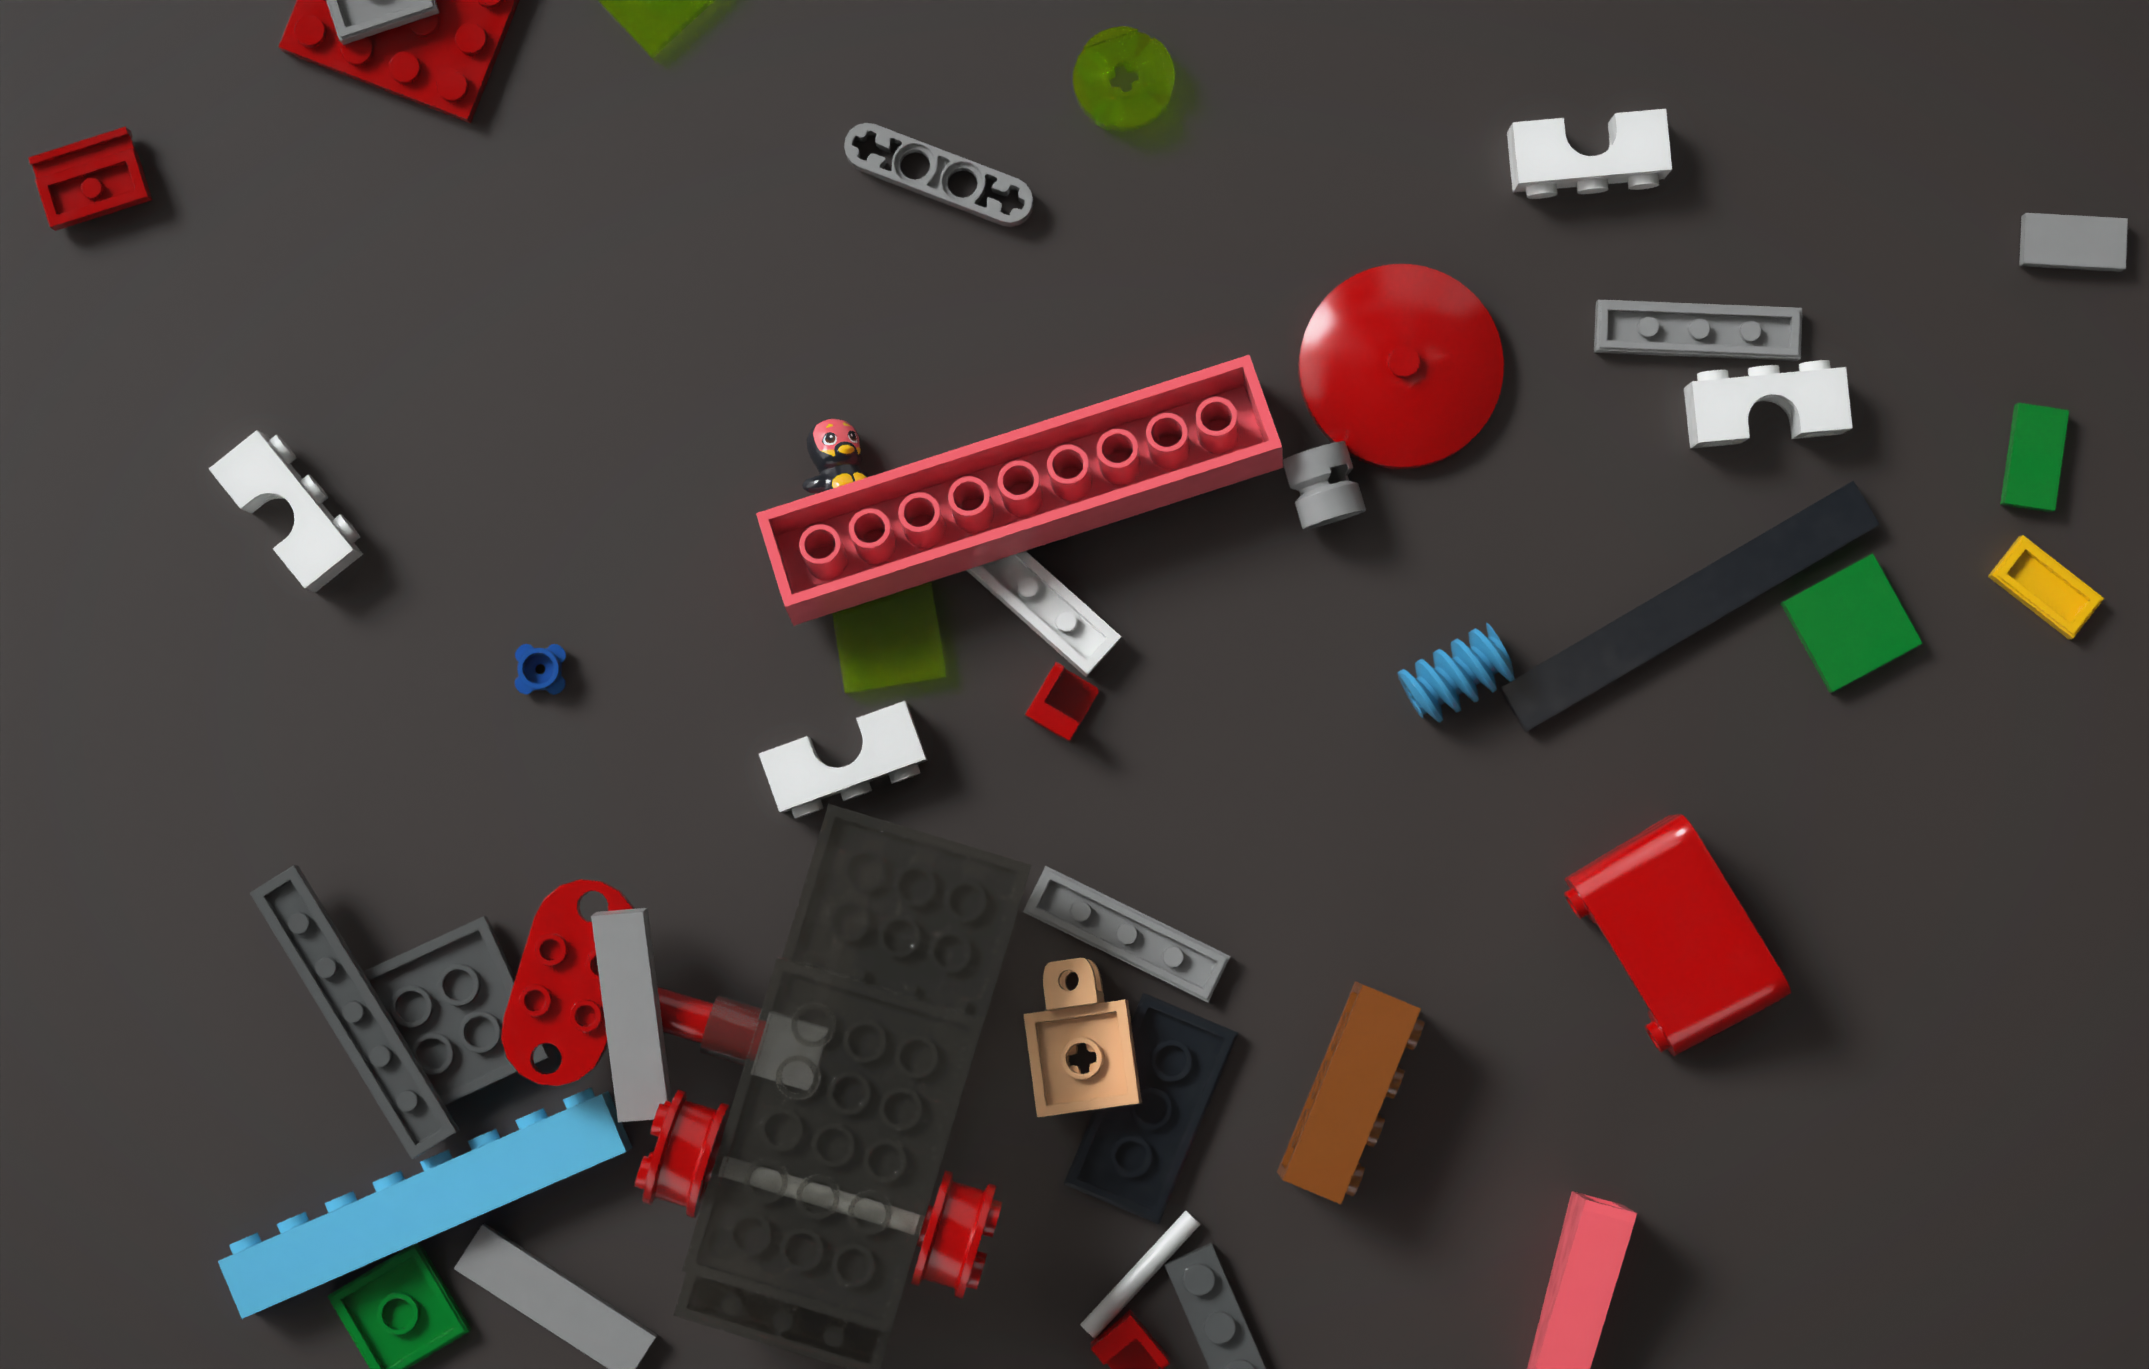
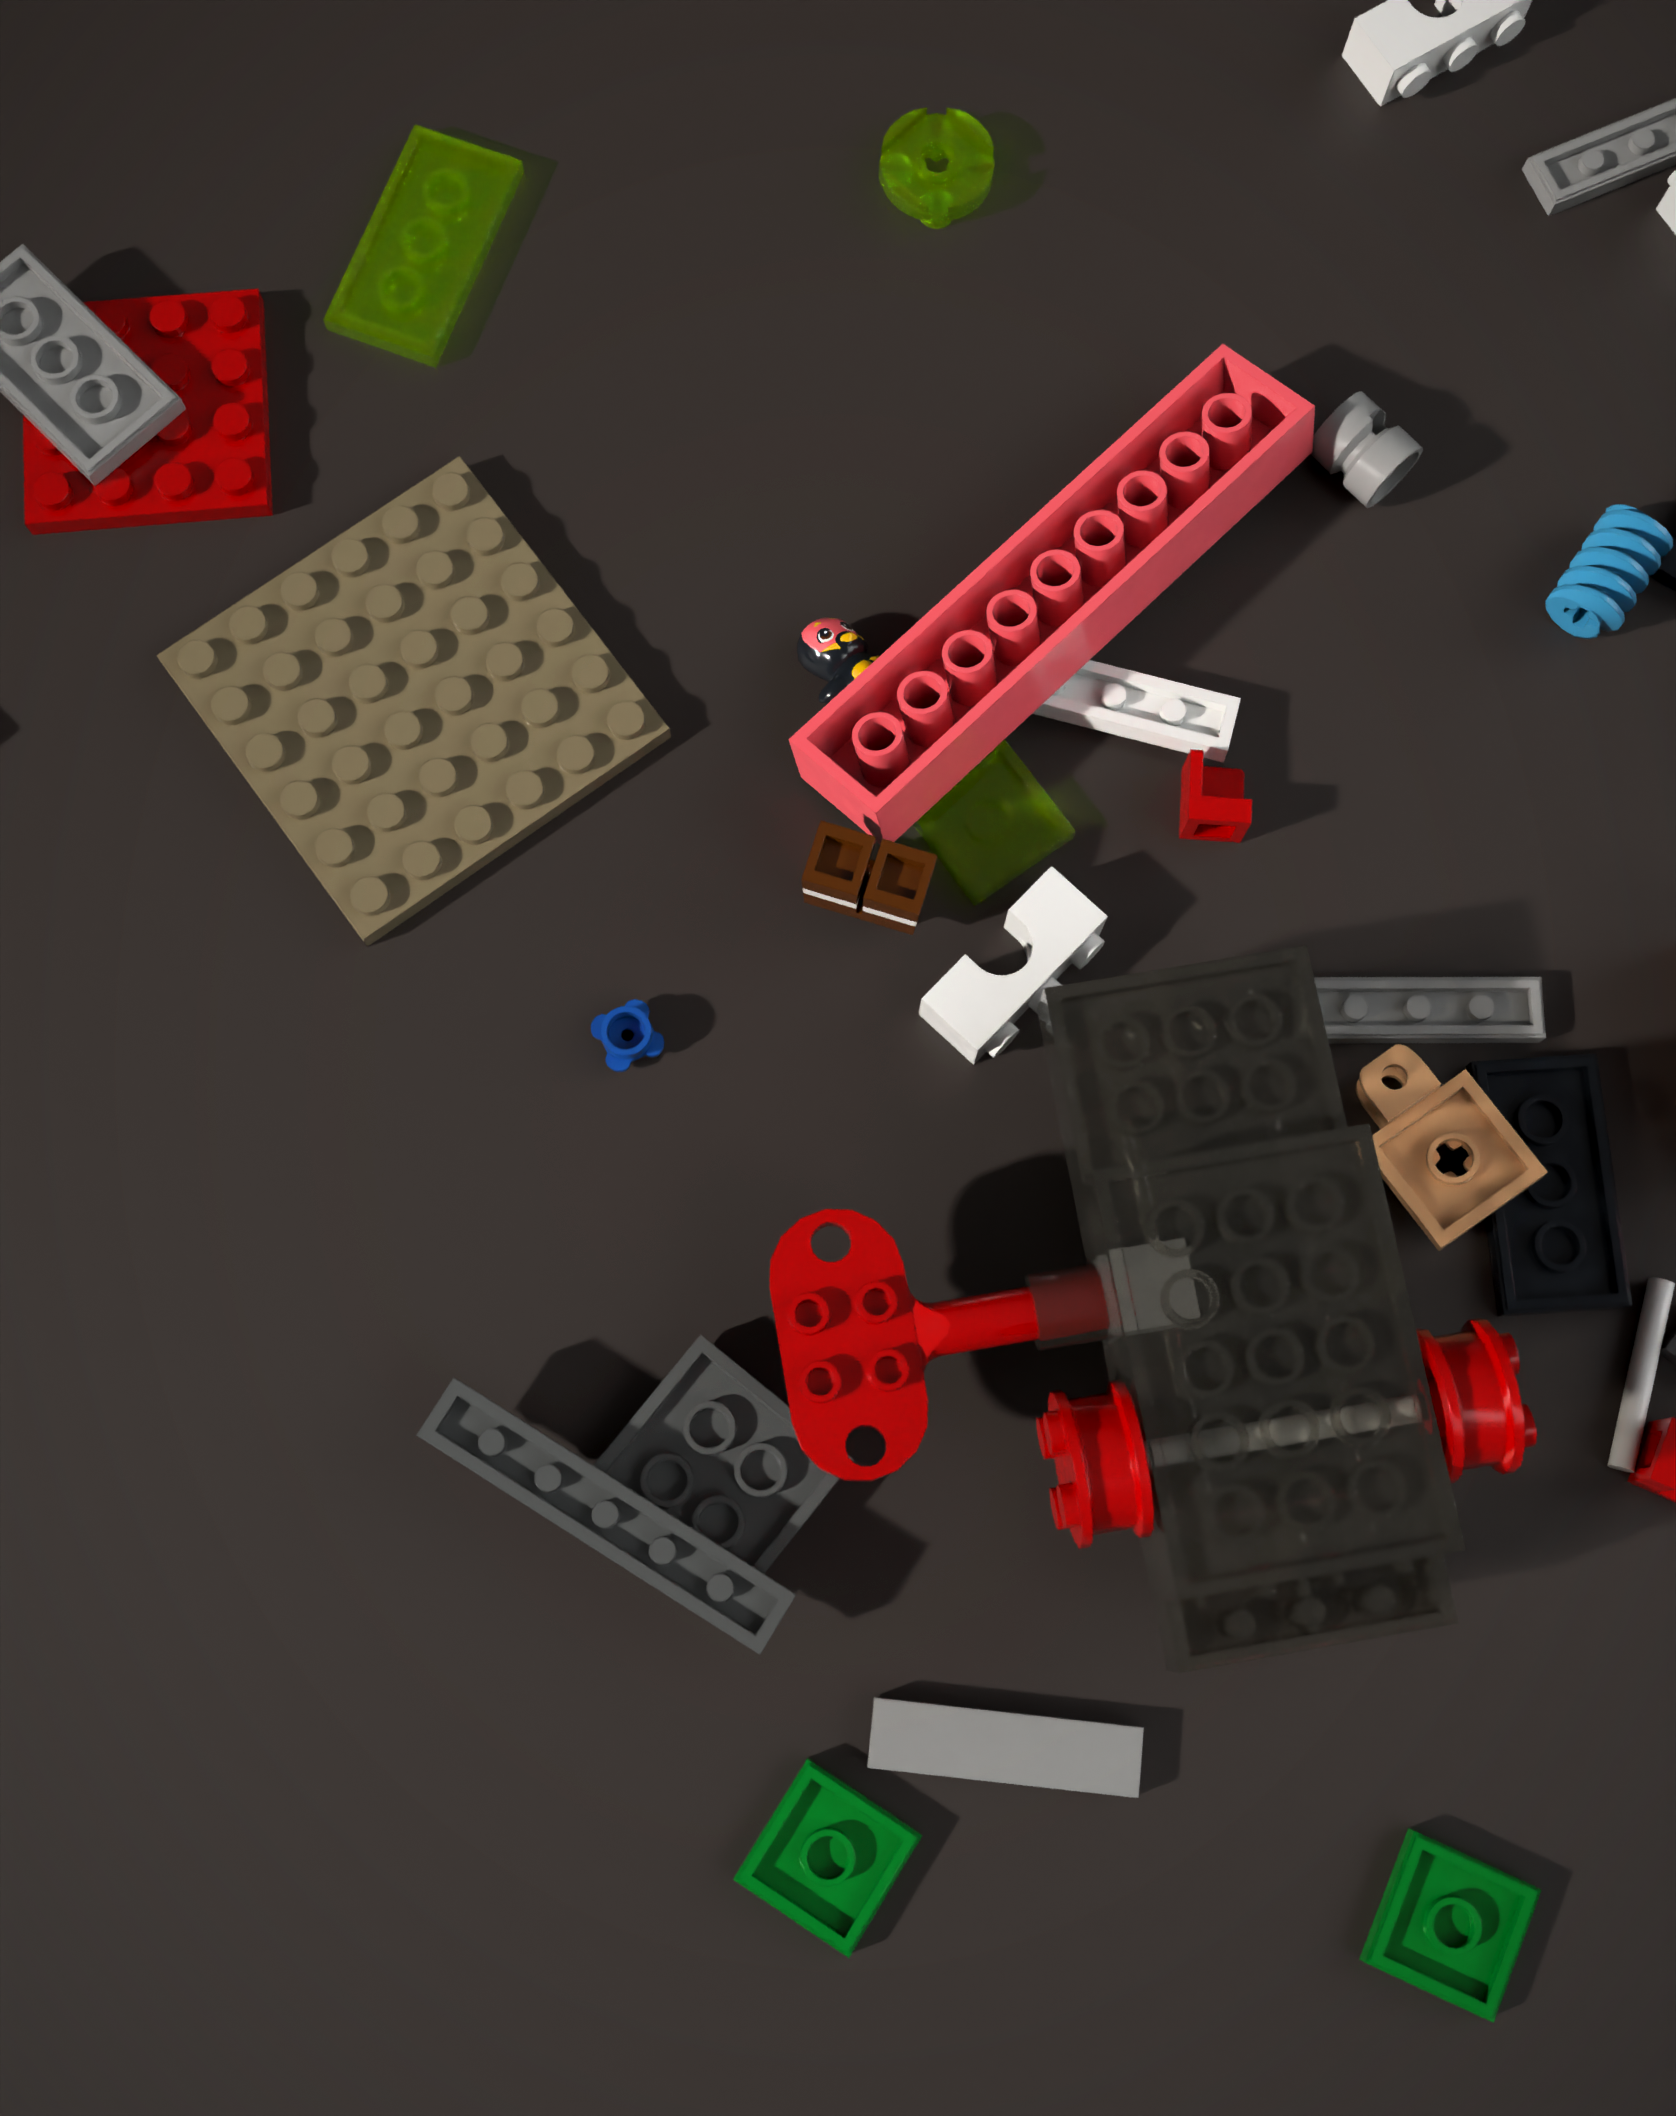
camera: 30 degrees left, 10 degrees down
(318, 543) = (211, 969): white arch -> none
(424, 1204) = (792, 1712): medium azure brick -> none
(507, 327) = (414, 699): none -> dark tan plate
(631, 1012) = (944, 1338): light grey tile -> none
(762, 645) = (878, 891): none -> reddish brown hips
(942, 167) = (797, 351): light grey beam -> none
(1401, 366) = (1370, 306): red dish -> none

